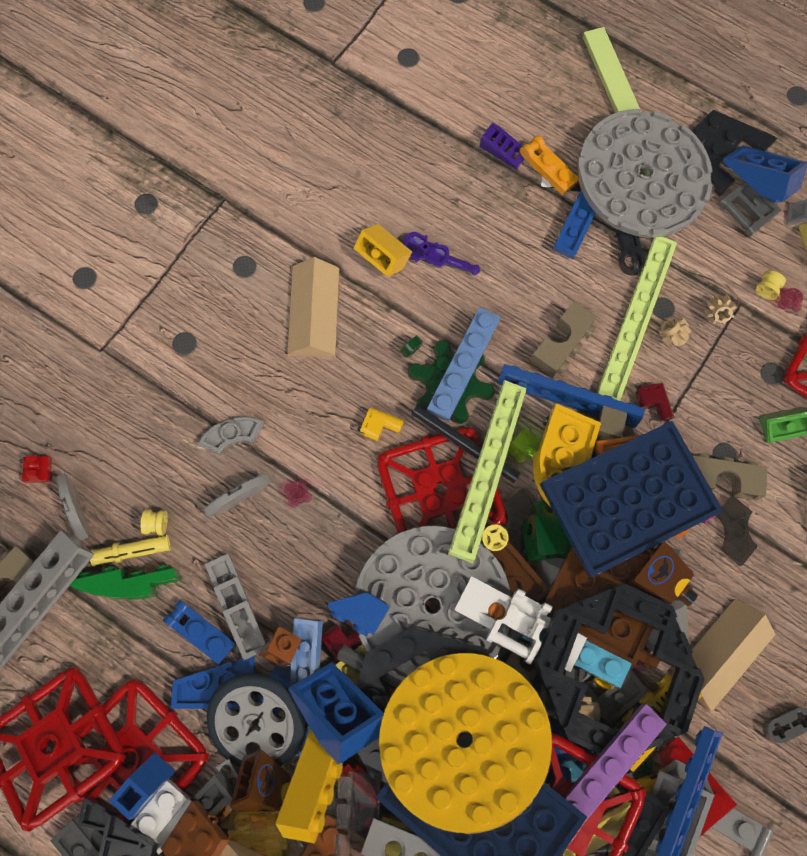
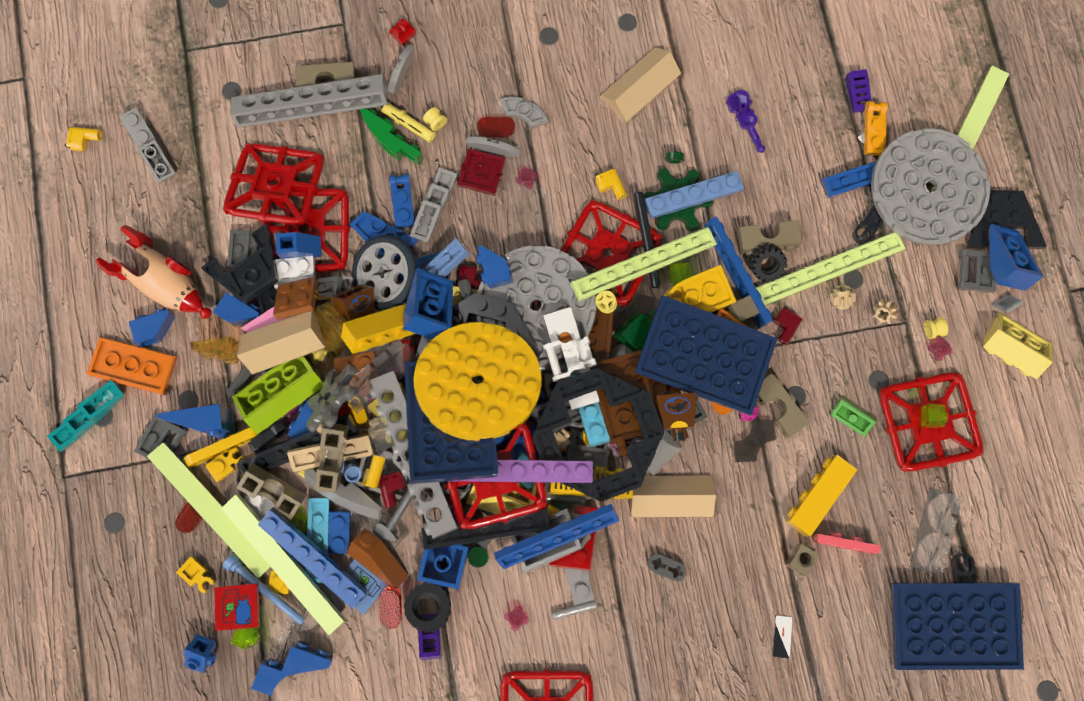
camera: 50 degrees right, 5 degrees up
(219, 473) = (496, 127): none -> clear red tile
(249, 529) = (481, 172): none -> dark red plate
(281, 647) = (434, 245): dark orange bracket -> none
(382, 250) = (715, 85): yellow brick -> none
(577, 359) = (774, 270): none -> black tyre

